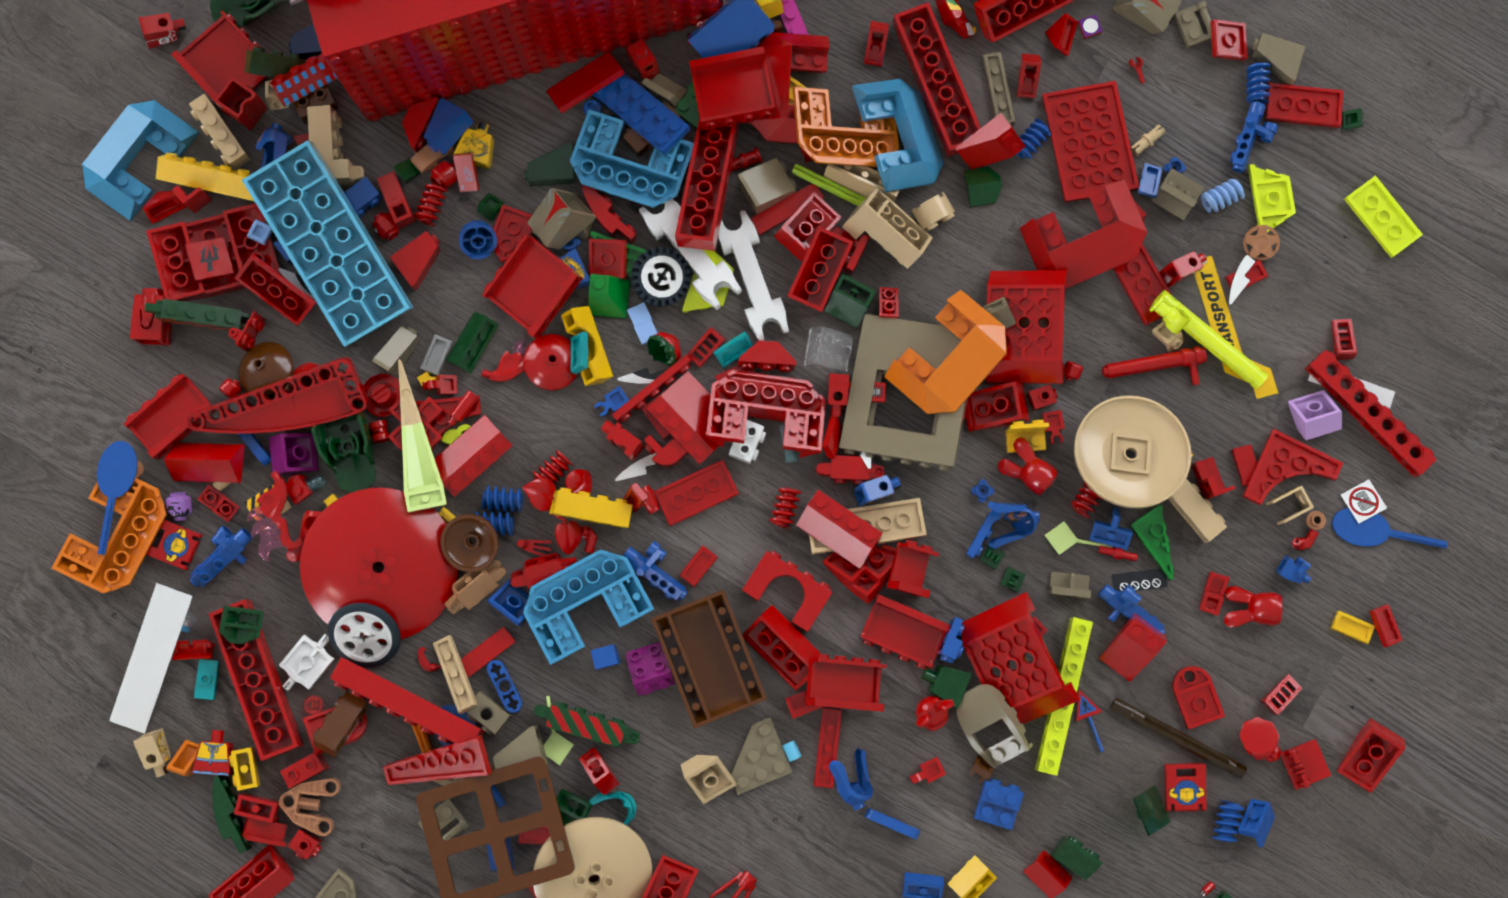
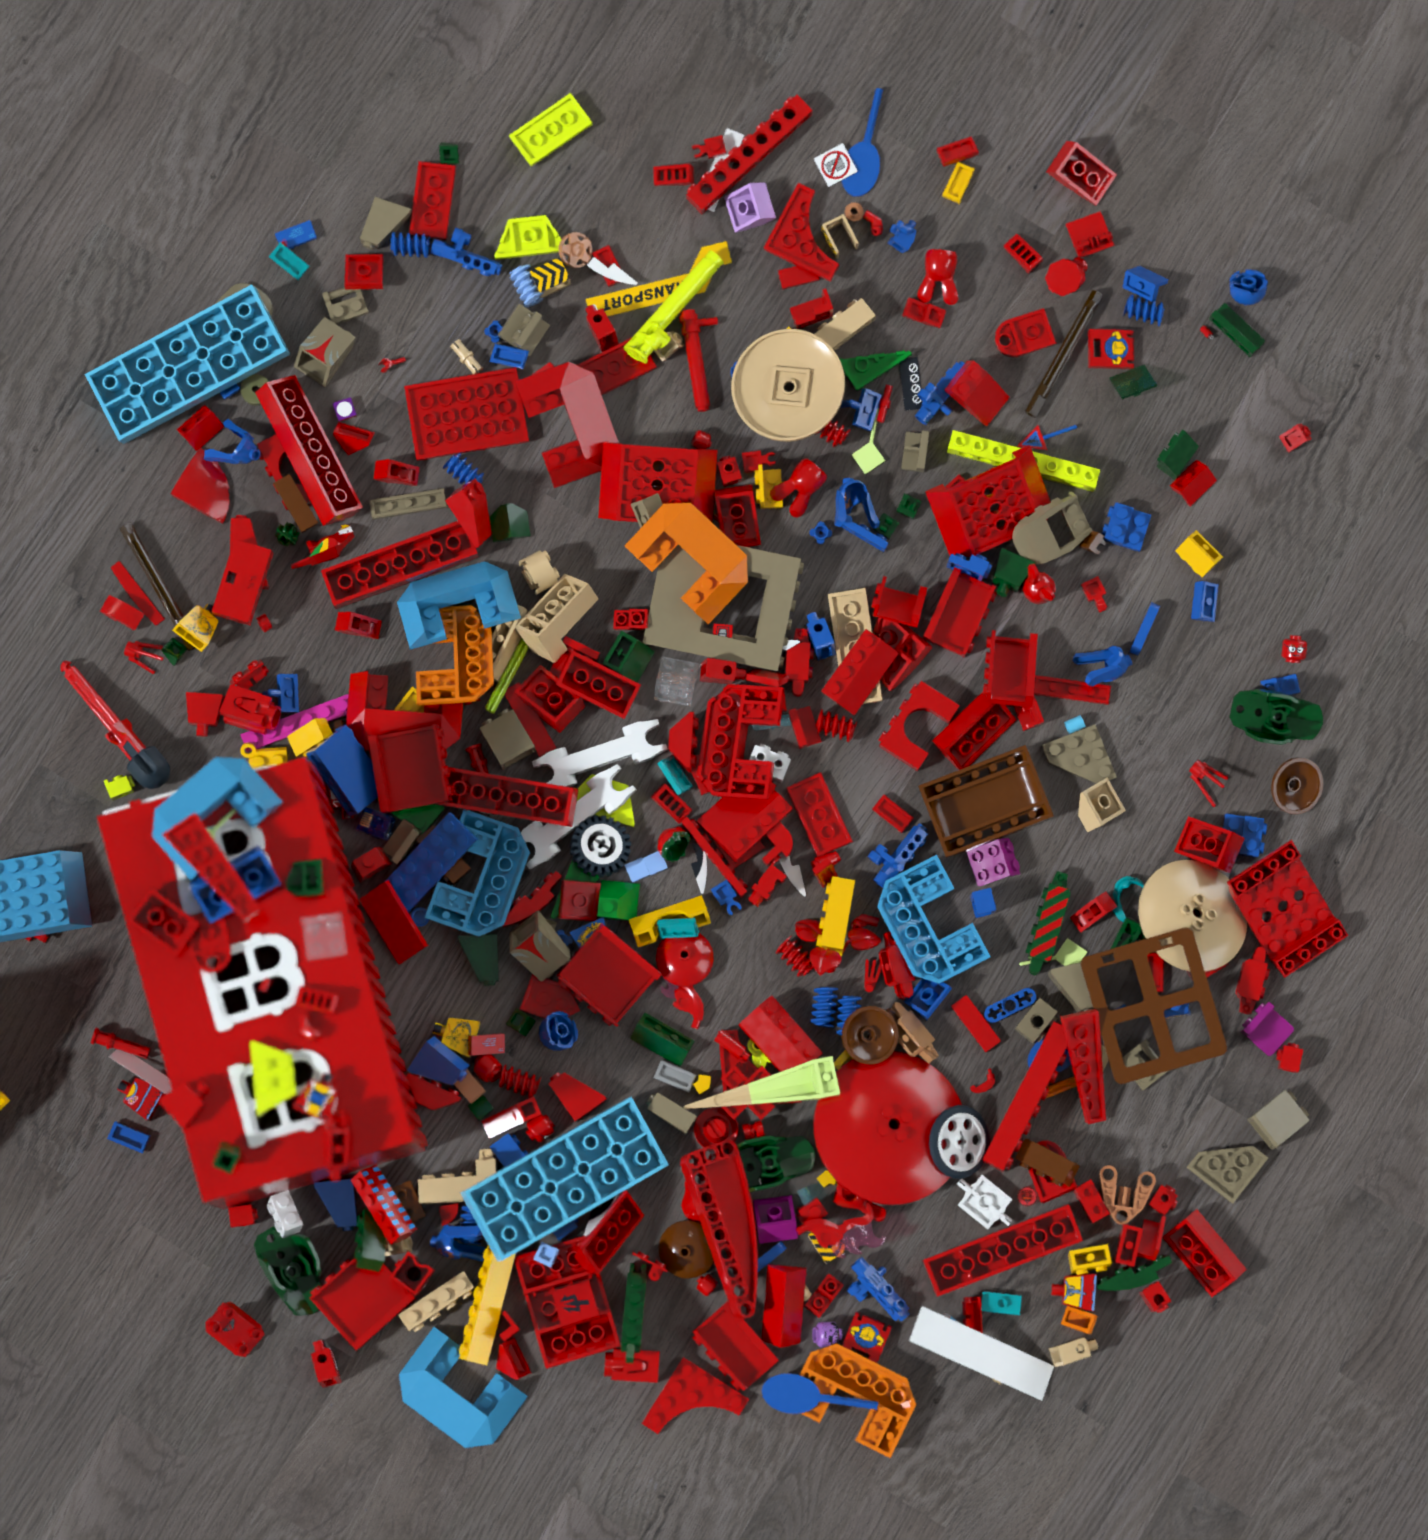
camera: 90 degrees left, 0 degrees up
(131, 376) = (690, 1389): none -> red plate
(203, 836) = (1155, 1297): none -> red brick
(240, 624) = (949, 1260): dark green slope -> none
(444, 384) = (707, 1065): red plate -> none
(455, 674) = (998, 1052): tan tile -> none
(678, 64) = (376, 824): none -> clear blue piece
(784, 475) = (804, 727): none -> red panel
(1232, 218) = (550, 277): none -> piece
(1374, 377) = (713, 147): none -> red plate

